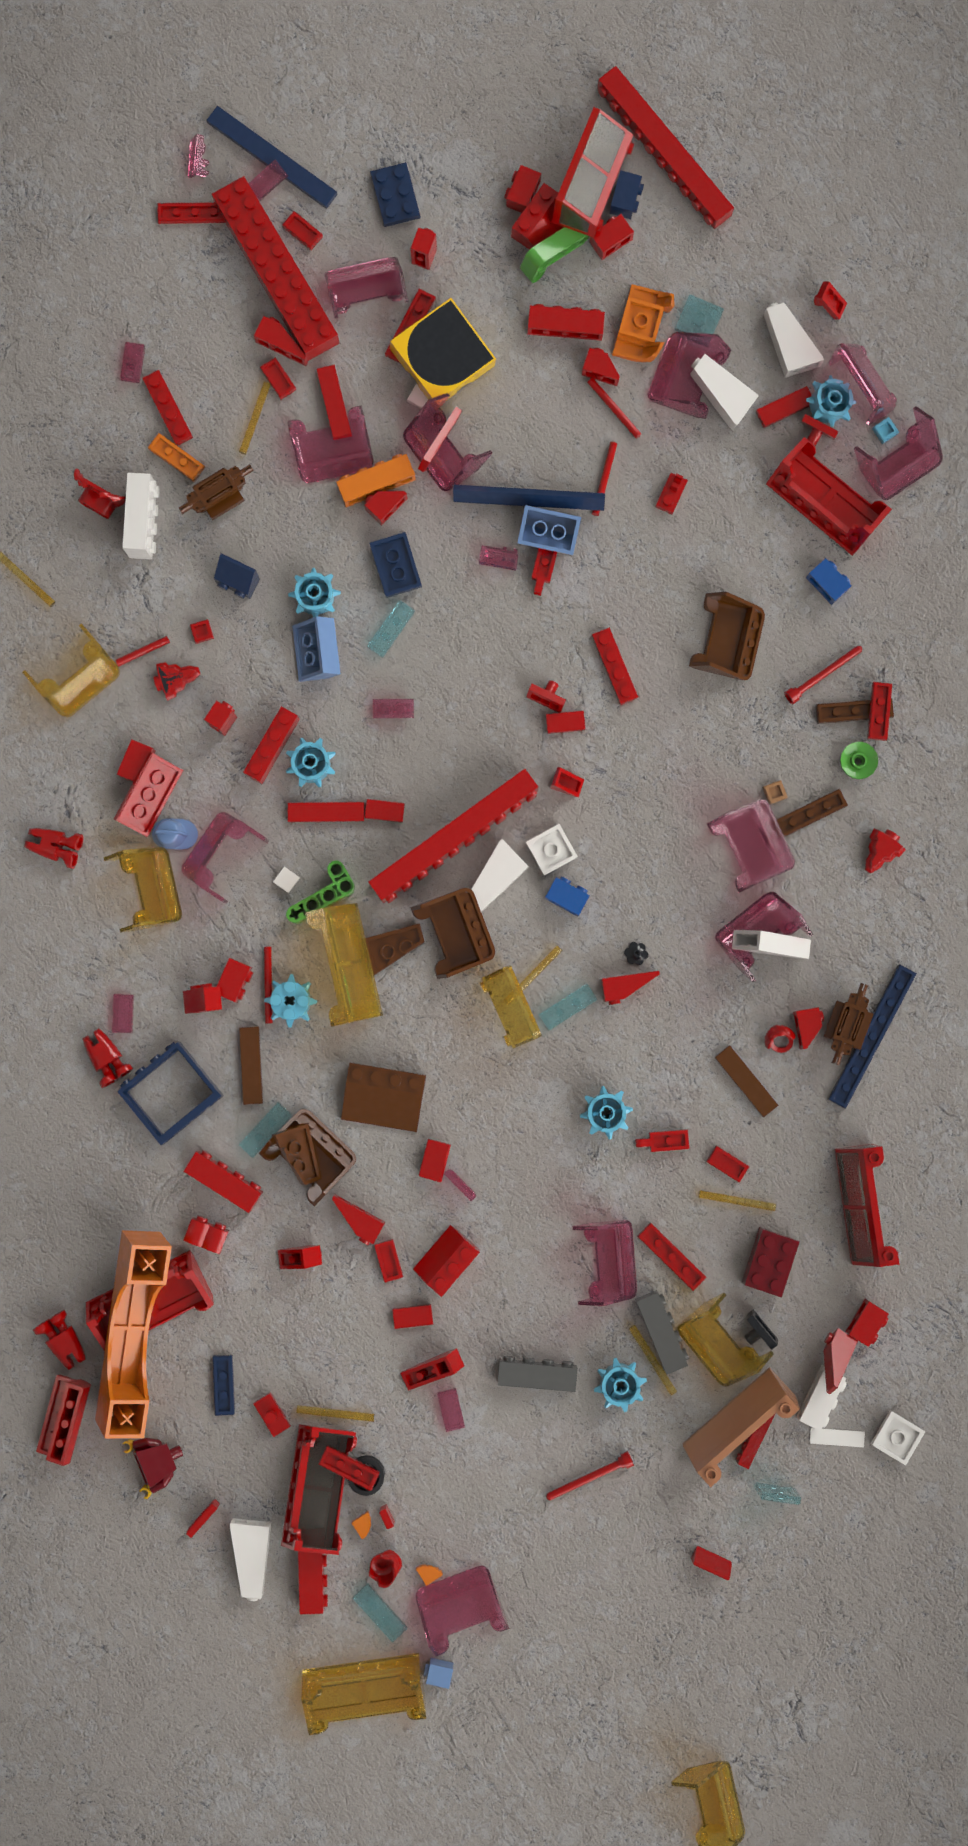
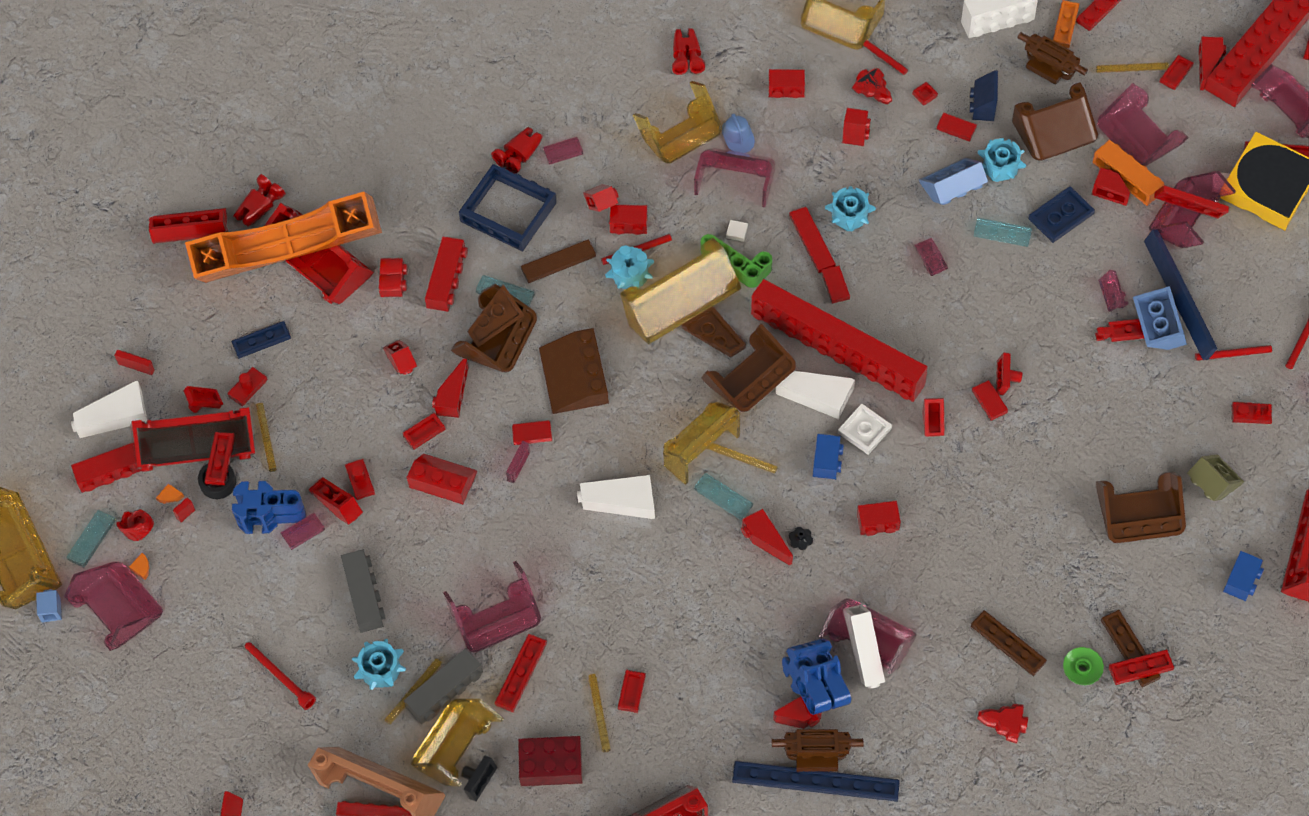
camera: 75 degrees right, 25 degrees down
(148, 794) = (762, 100): tile -> none
(154, 1462) = (172, 306): dark red torso -> none
(254, 618) = (956, 126): none -> red tile
(271, 745) = (846, 173): red brick -> none
(273, 1464) = (202, 397): none -> red tile
(300, 523) = (1056, 127): none -> reddish brown windscreen
(334, 402) = (1179, 118): red tile -> none
(412, 1316) = (379, 469): red tile -> none
(416, 1338) = (360, 479): none -> red tile
(418, 1443) = (266, 507): none -> blue connector
(534, 1100) = (619, 496): none -> white slope
(614, 666) = (1063, 423): red plate -> none
(615, 1119) = (646, 556): medium azure brick -> none
(647, 876) = (878, 518): none -> red brick
(665, 1140) = (631, 624): red plate -> none
(725, 558) = (1214, 477): none -> olive slope
(746, 1081) = (720, 679): reddish brown tile -> none
(755, 843) = (958, 600): clear pink windscreen -> none
(775, 792) = (1014, 604): medium nougat tile -> none
(779, 1030) = (769, 684): red piece -> none
(793, 694) = (1118, 586): red piece -> none
(797, 998) = (816, 676): none -> blue connector

